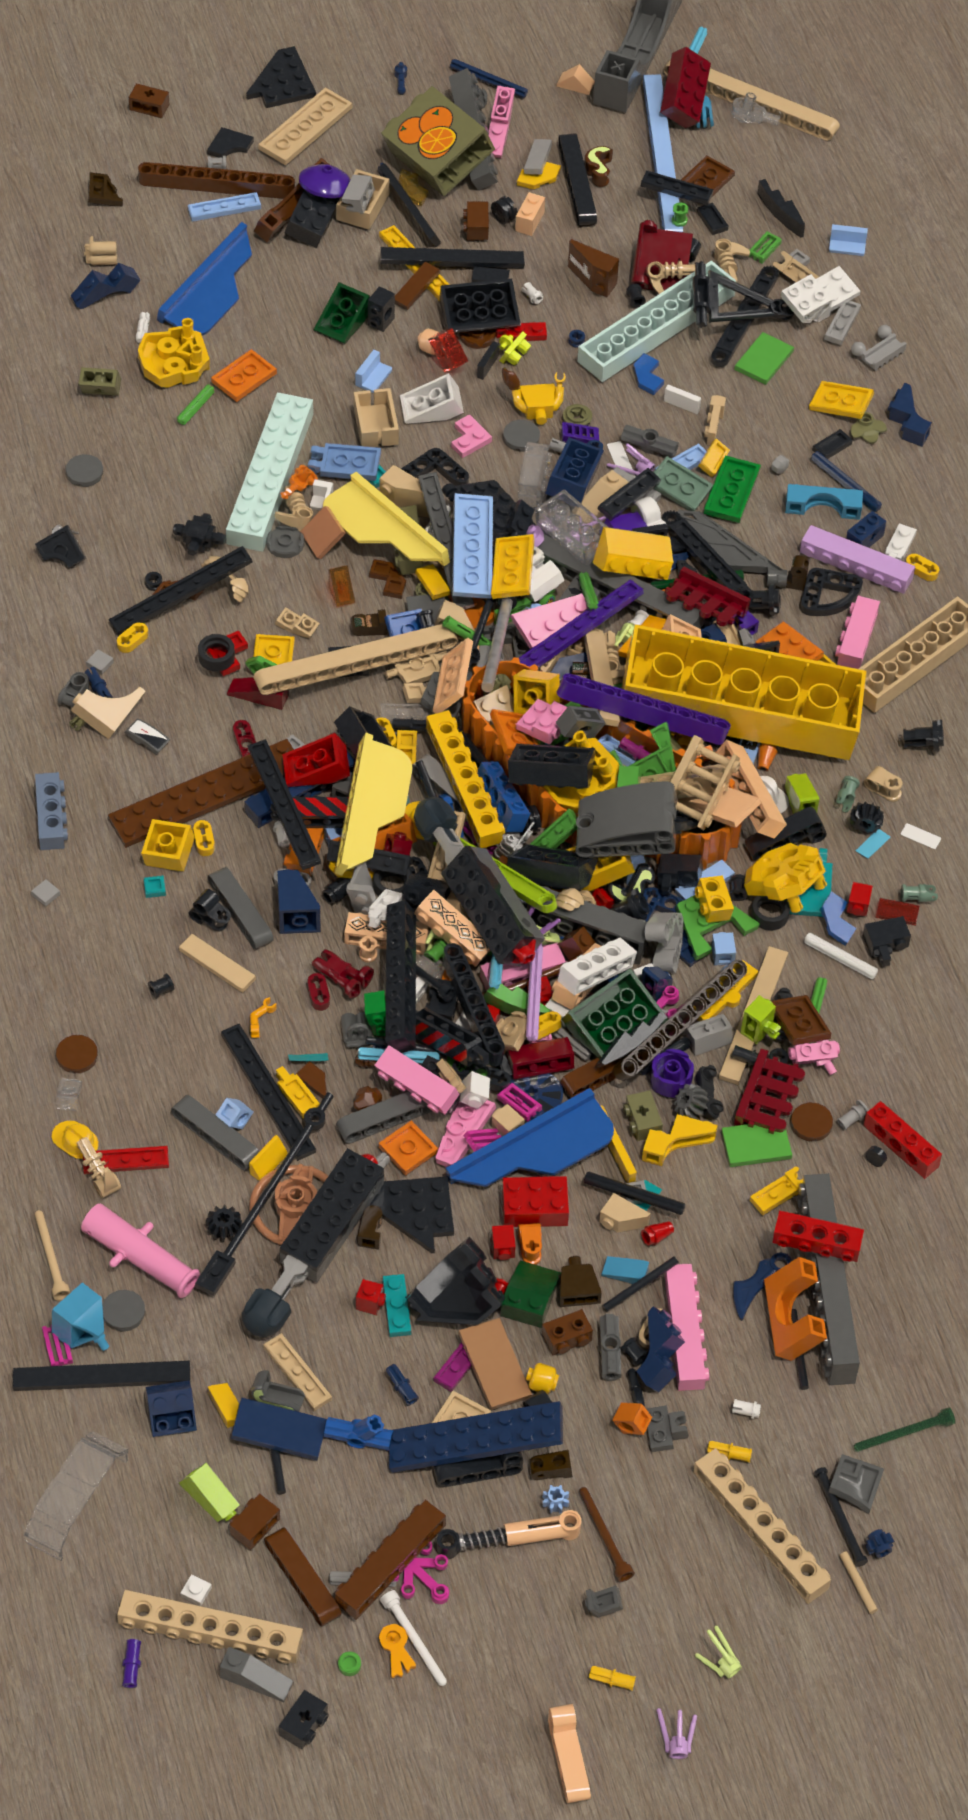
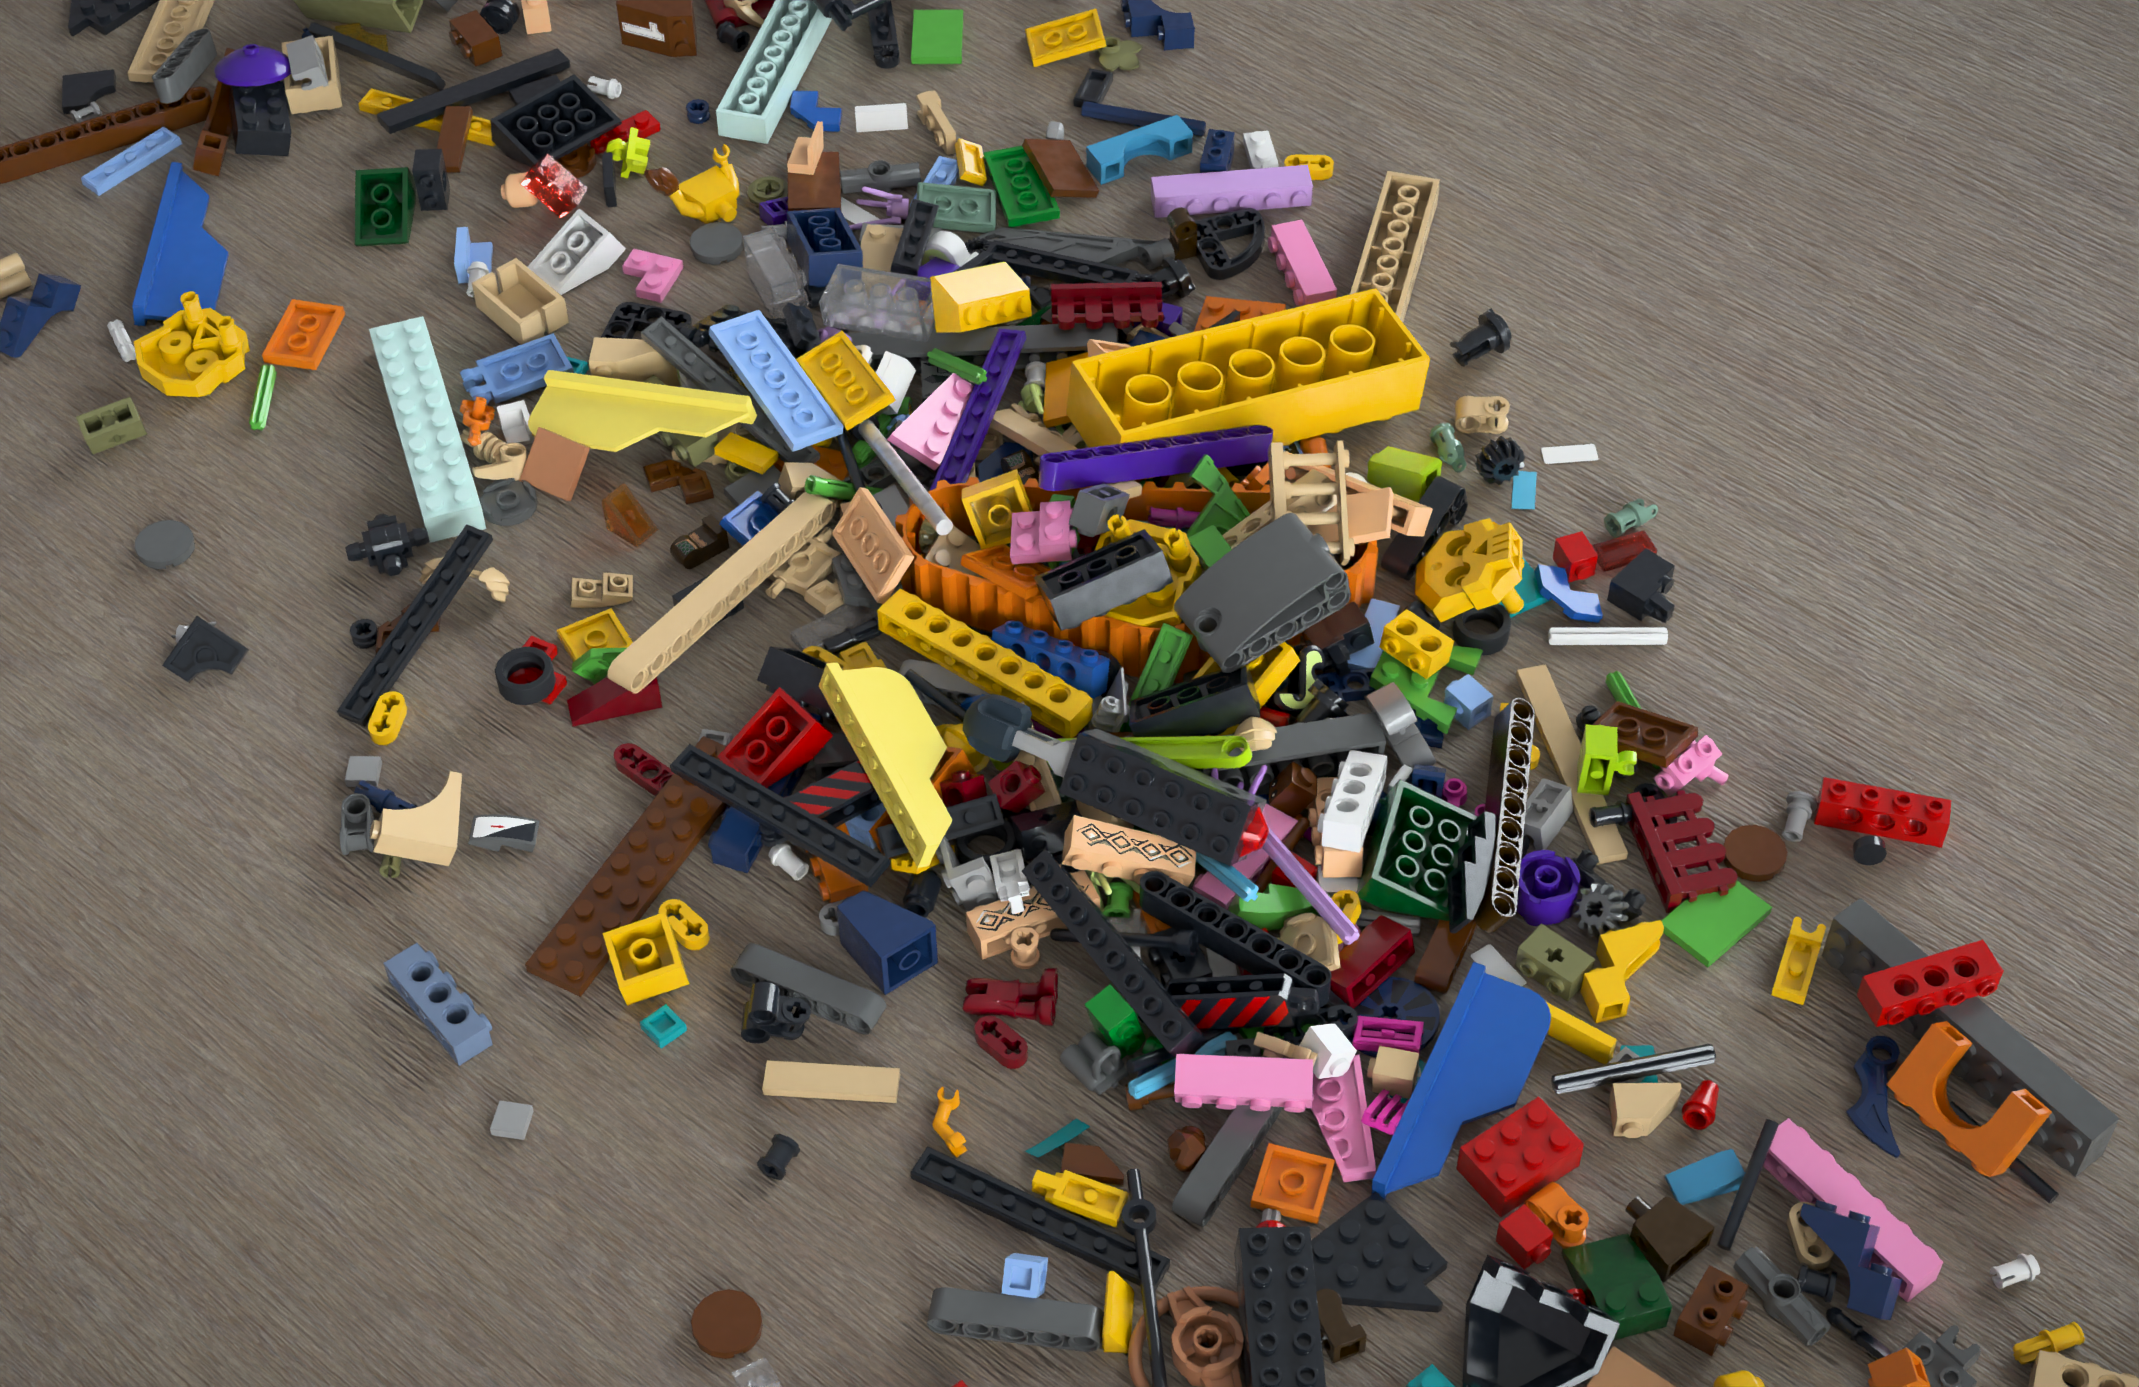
camera: 30 degrees left, 5 degrees down
(291, 157) = (184, 66): none -> dark grey beam
(367, 384) = (475, 271): none -> white pin
(425, 858) = (1007, 790): none -> dark red brick
(606, 424) = (816, 190): none -> reddish brown tile
(614, 1102) = (1497, 965): none -> white sticker
(616, 401) = (807, 152): none -> light nougat panel
(763, 490) = (1060, 168): none -> reddish brown tile

